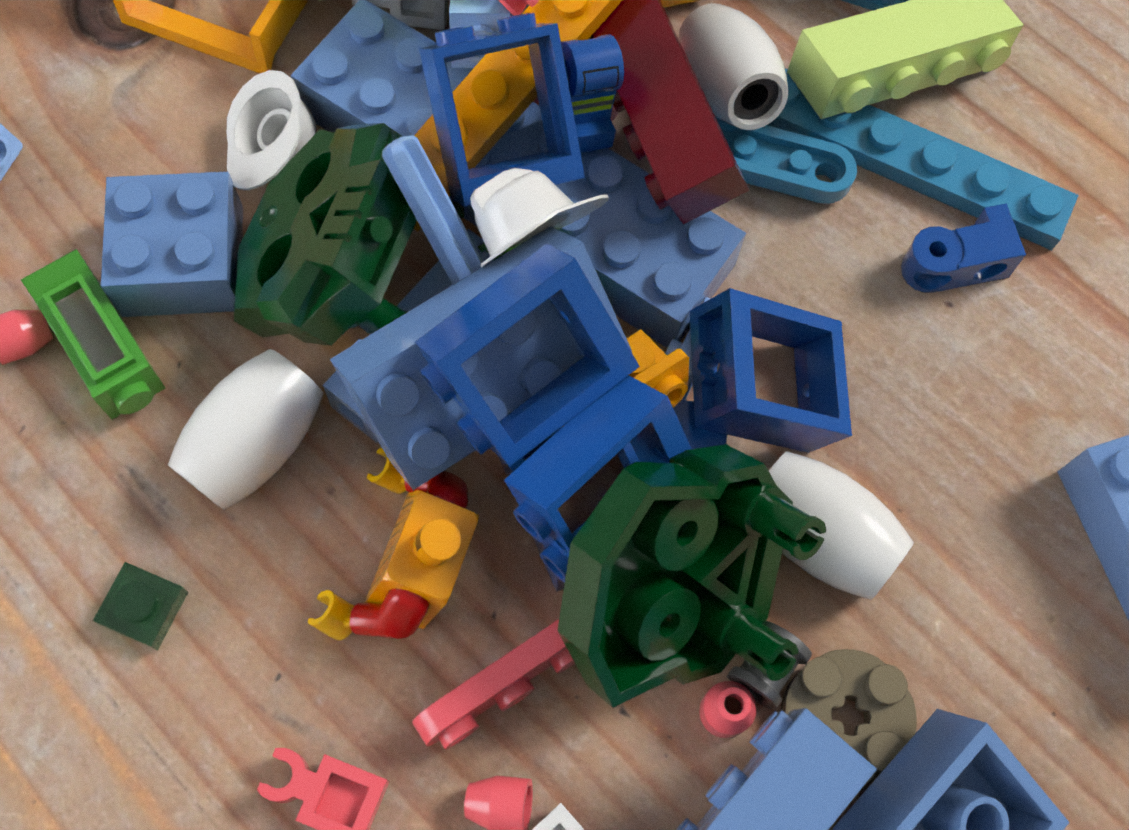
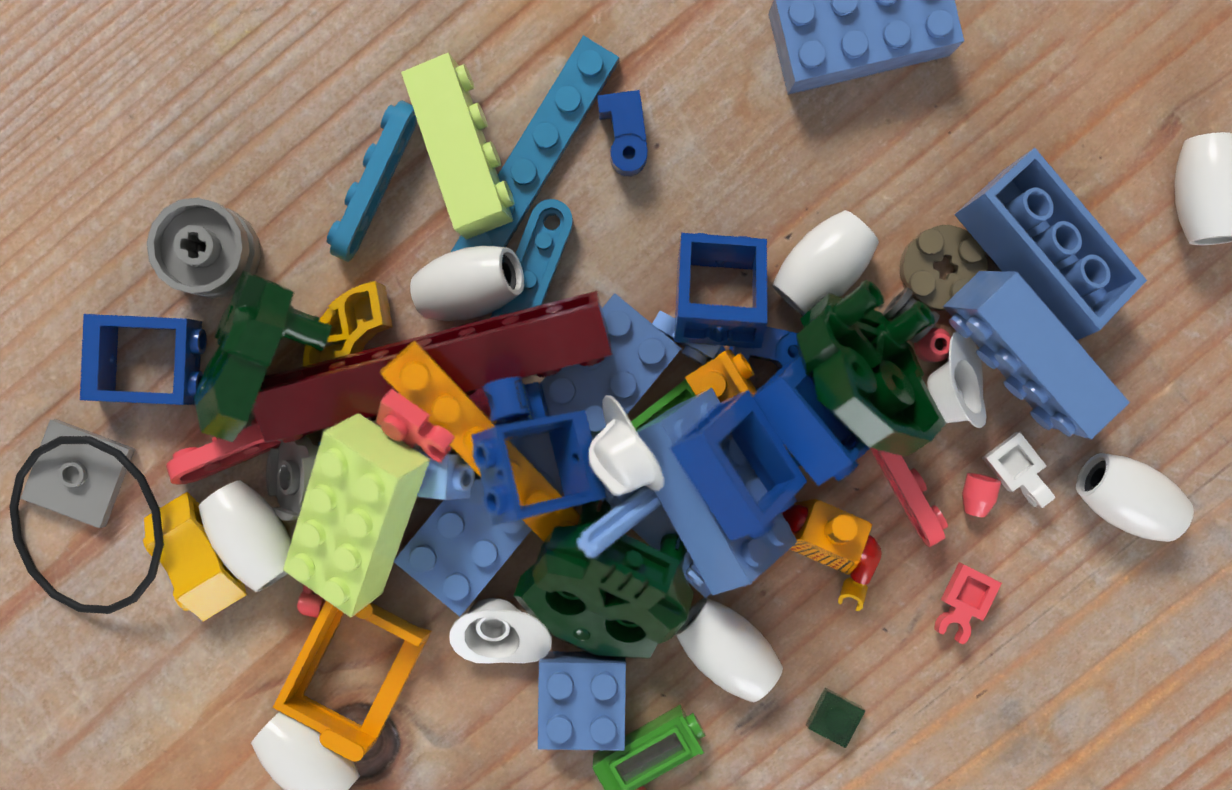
camera: 80 degrees left, 20 degrees up
(673, 749) = (959, 384): none -> white piece

